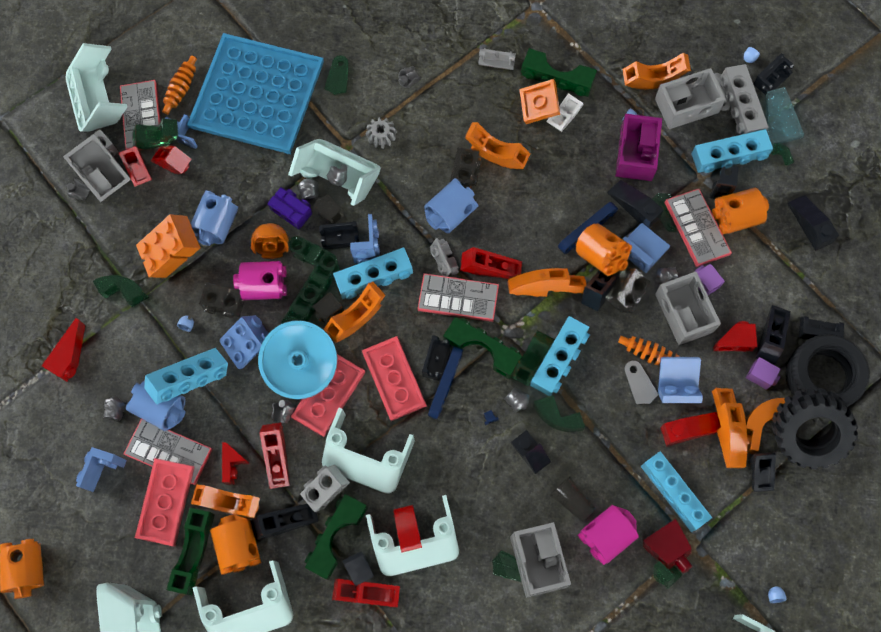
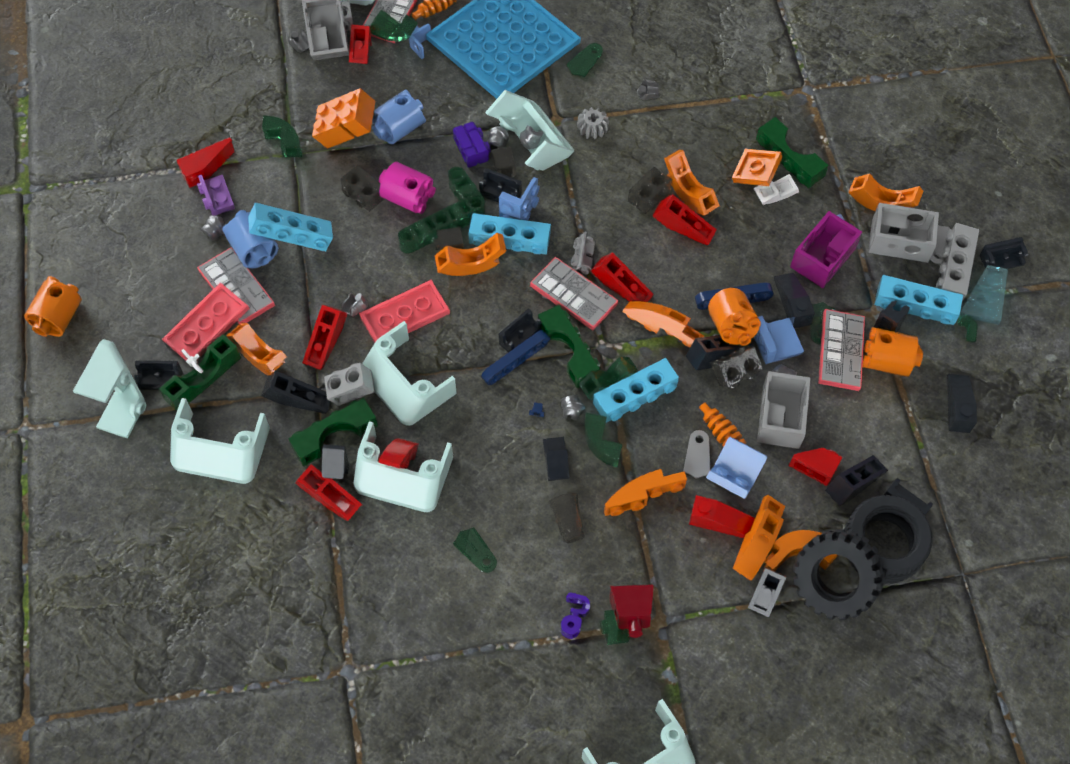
camera: 25 degrees right, 10 degrees down
(94, 464) = (166, 261): medium blue bracket -> none
(96, 376) = (216, 194): none -> medium lavender bracket
(152, 573) = (154, 374): none -> black hinge
(171, 159) = (394, 56): red slope -> none
(176, 545) = (192, 361): none -> white piece
(185, 323) = (318, 192): light blue hinge -> none
(230, 458) = (282, 320): red slope -> none
(235, 544) = (241, 387): orange cylinder -> none
(244, 340) = (362, 229): medium blue bracket -> none
(269, 241) = (434, 160): orange cylinder -> none
(297, 360) = (395, 267): medium azure dish -> none
(394, 378) = (471, 331): coral tile -> none
(450, 206) = (614, 212): medium blue cylinder -> none
(496, 59) = (740, 114): light grey hinge -> none
(505, 182) = (683, 220): none -> red slope
(539, 558) = (501, 548): light grey piece -> none
(609, 533) = (583, 562): dark pink cylinder -> none
(613, 446) = (636, 493): none -> orange slope
(630, 589) = (572, 623): none -> dark purple leg
(676, 491) = (670, 564): medium azure brick -> none
(710, 278) = (821, 399): medium lavender brick -> none
(751, 55) = (992, 227): light blue hinge -> none
(763, 373) = (824, 508): medium lavender brick -> none
(776, 595) = (710, 711): light blue hinge -> none

